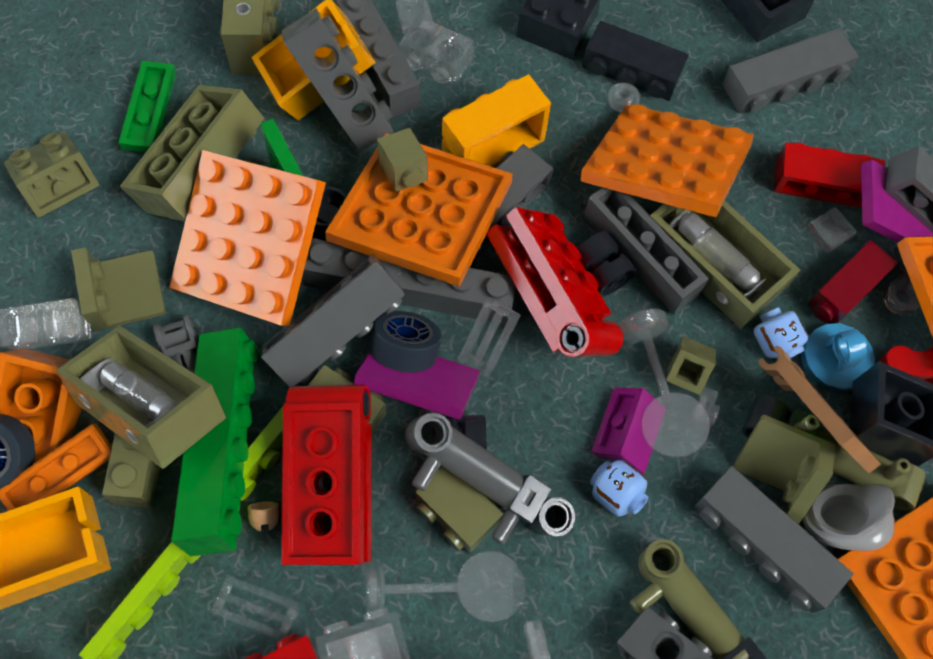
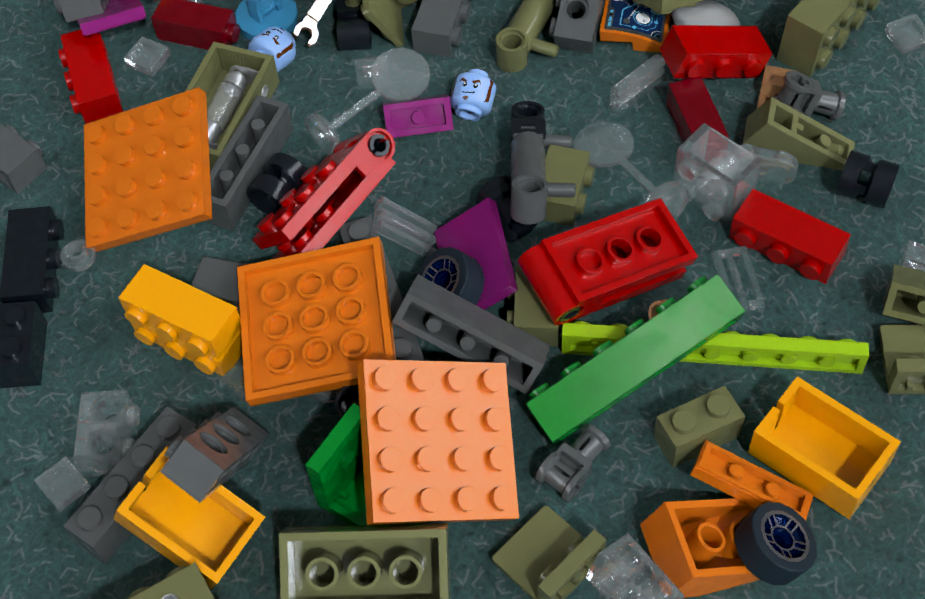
camera: 110 degrees left, 10 degrees down
(142, 395) = (647, 414): olive piece -> none
(403, 159) = (280, 345): olive brick -> none
(691, 365) = (339, 88): olive brick -> none

